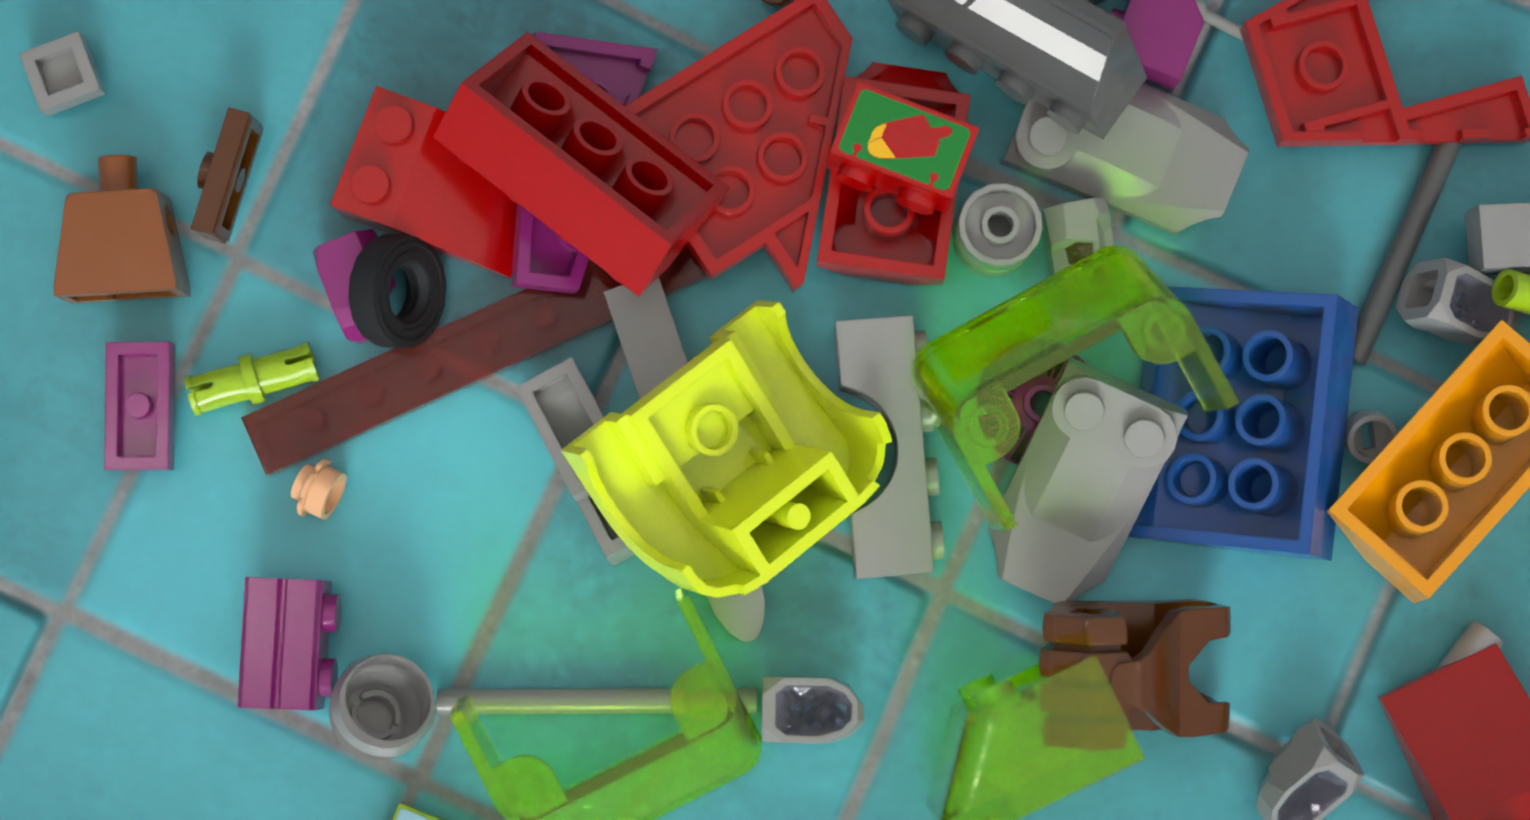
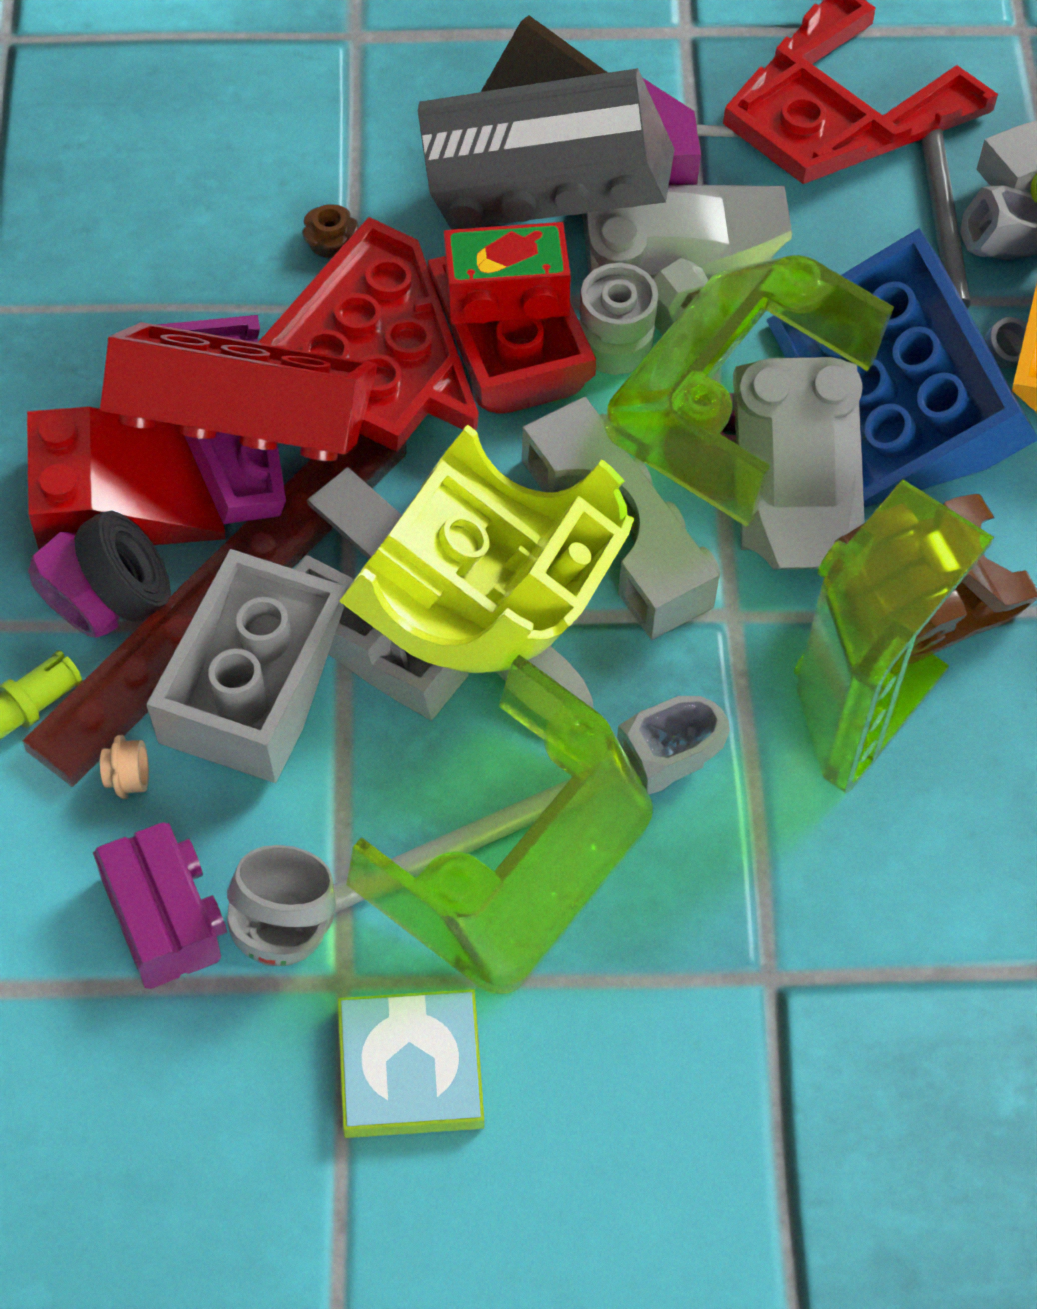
camera: 30 degrees left, 25 degrees down
(464, 453) = (248, 666): none -> light grey slope

